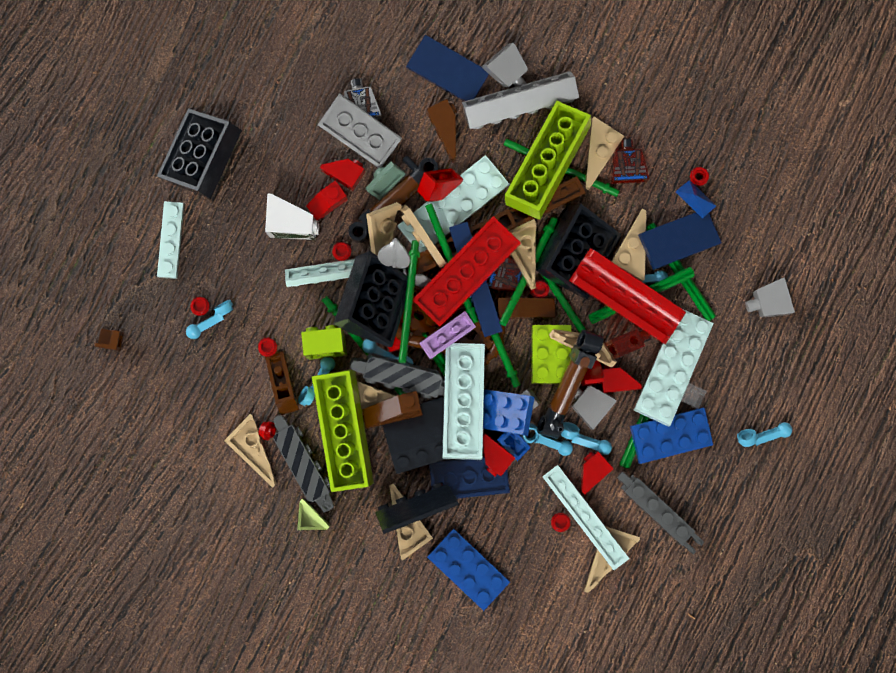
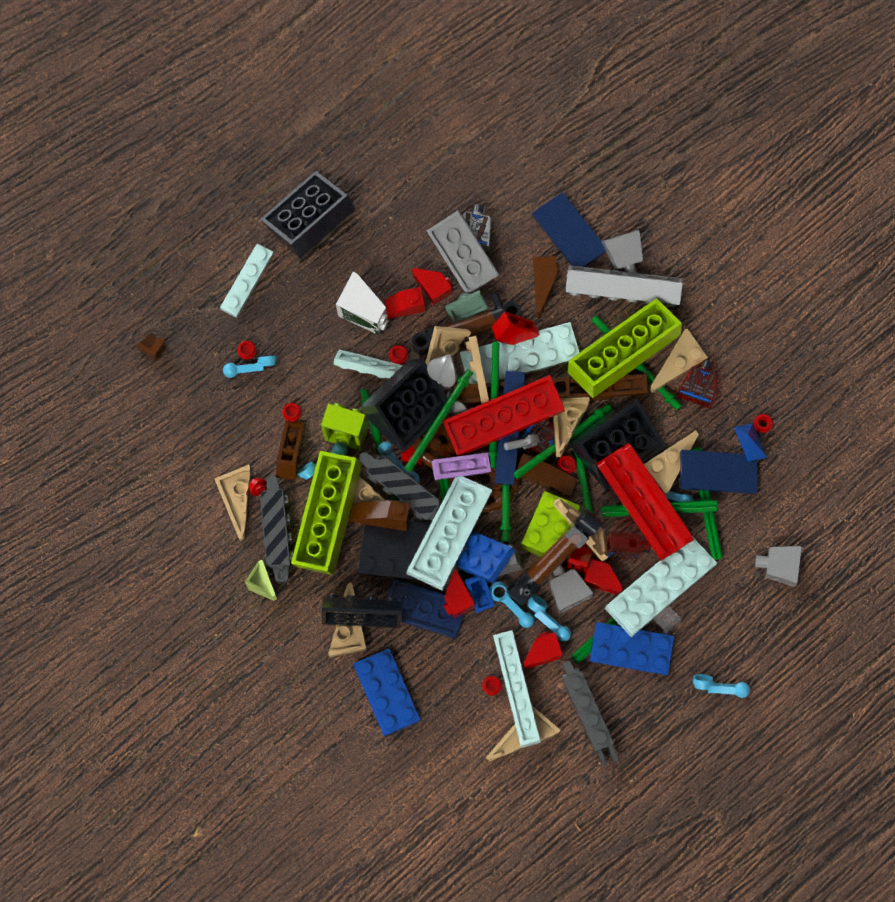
camera: 30 degrees right, 10 degrees down
(494, 289) = (529, 441): none -> light grey bar

